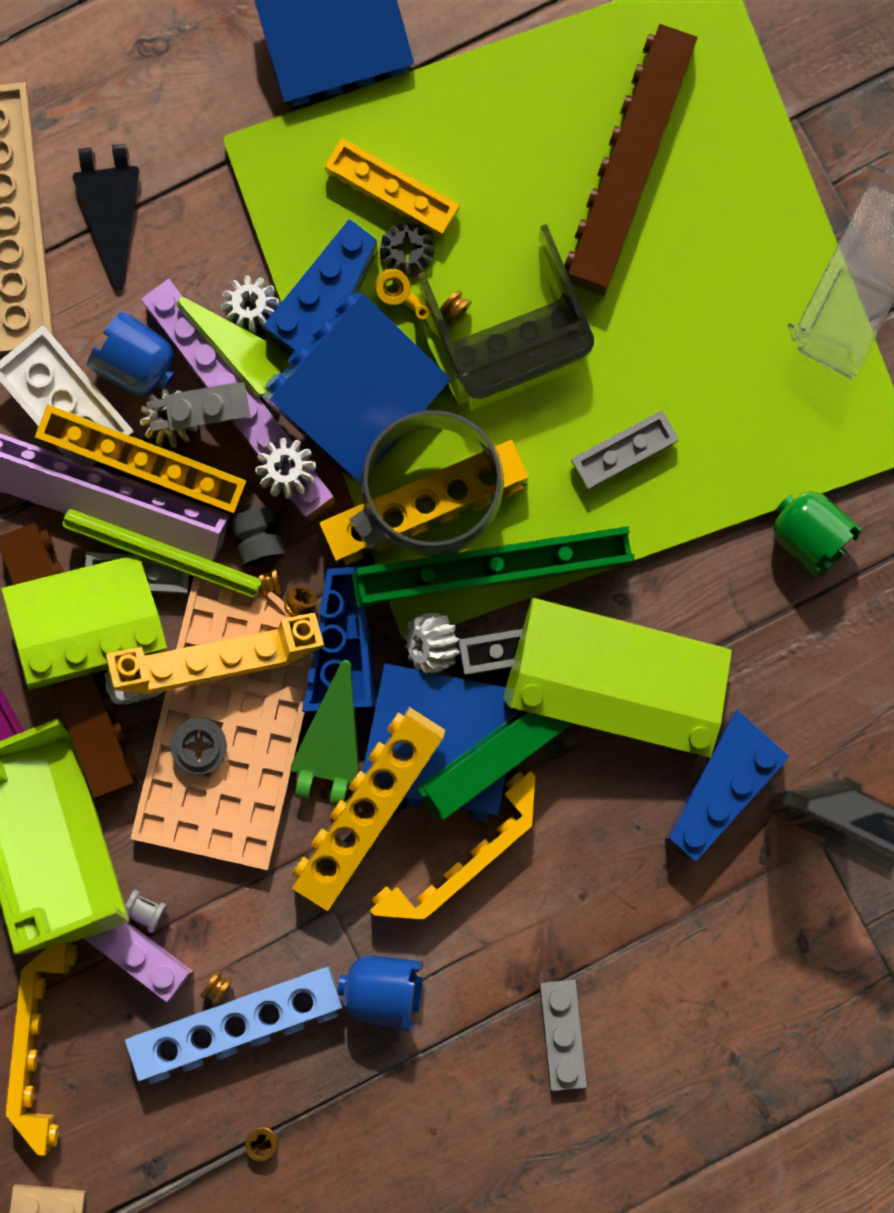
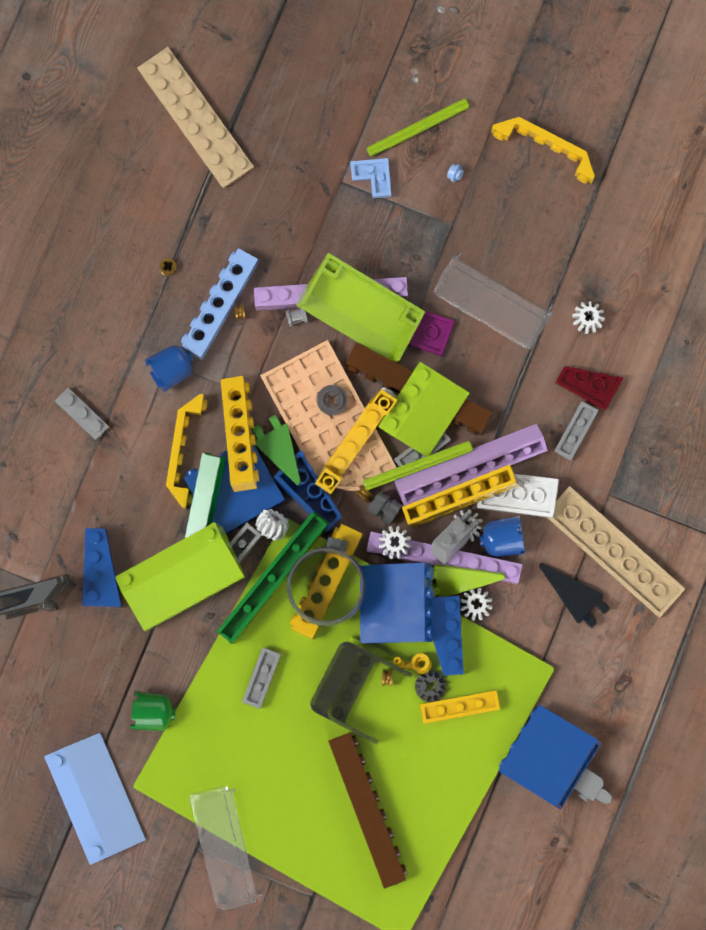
camera: 145 degrees right, 0 degrees up
(35, 1128) = (266, 195): yellow slope -> none
(299, 601) = (343, 501): pearl gold bush -> none

